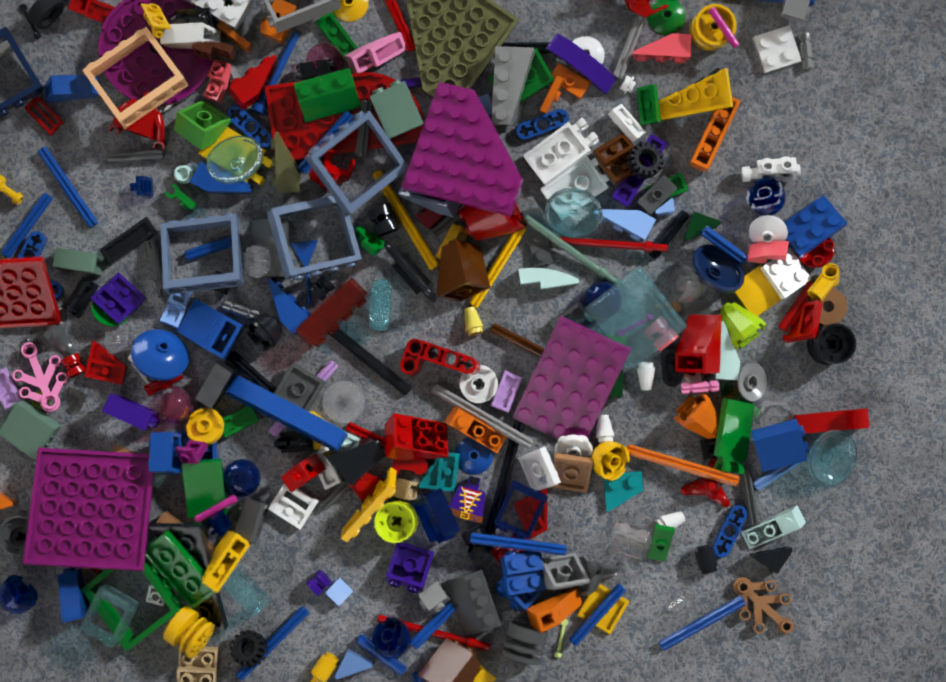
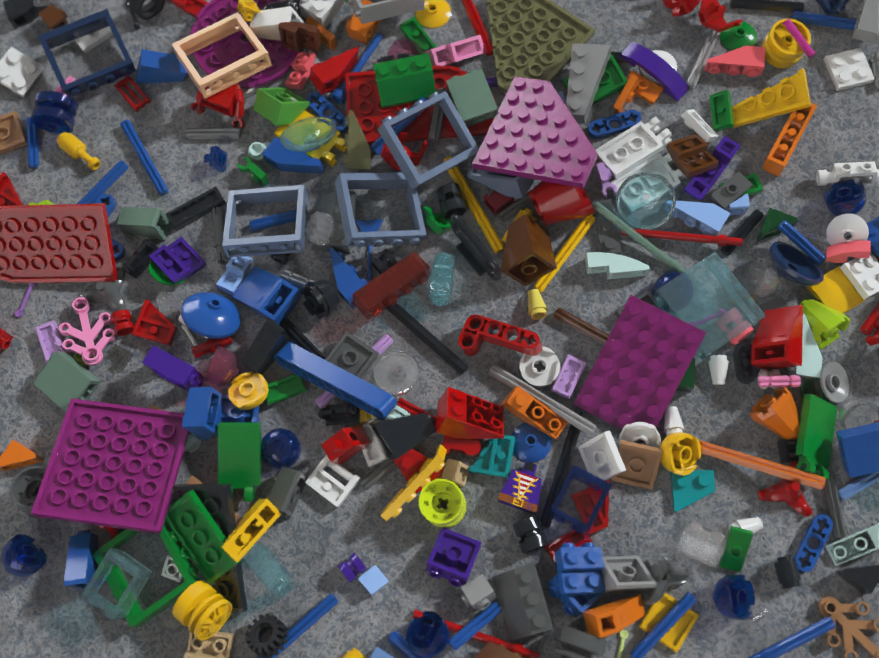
camera: 10 degrees right, 15 degrees down
(191, 452) = (229, 412): magenta bracket -> none
(216, 508) = (250, 474): dark pink piece -> none
(220, 523) = (250, 490): clear blue tile -> none
(436, 516) = (486, 500): clear blue window -> none
(519, 544) = (576, 536): blue axle -> none
(533, 183) = (603, 176): none -> lavender plate
(627, 84) = (700, 92): white plate -> none
(652, 153) = (725, 149): black tyre -> none
(659, 585) = (734, 597): none -> clear blue cylinder

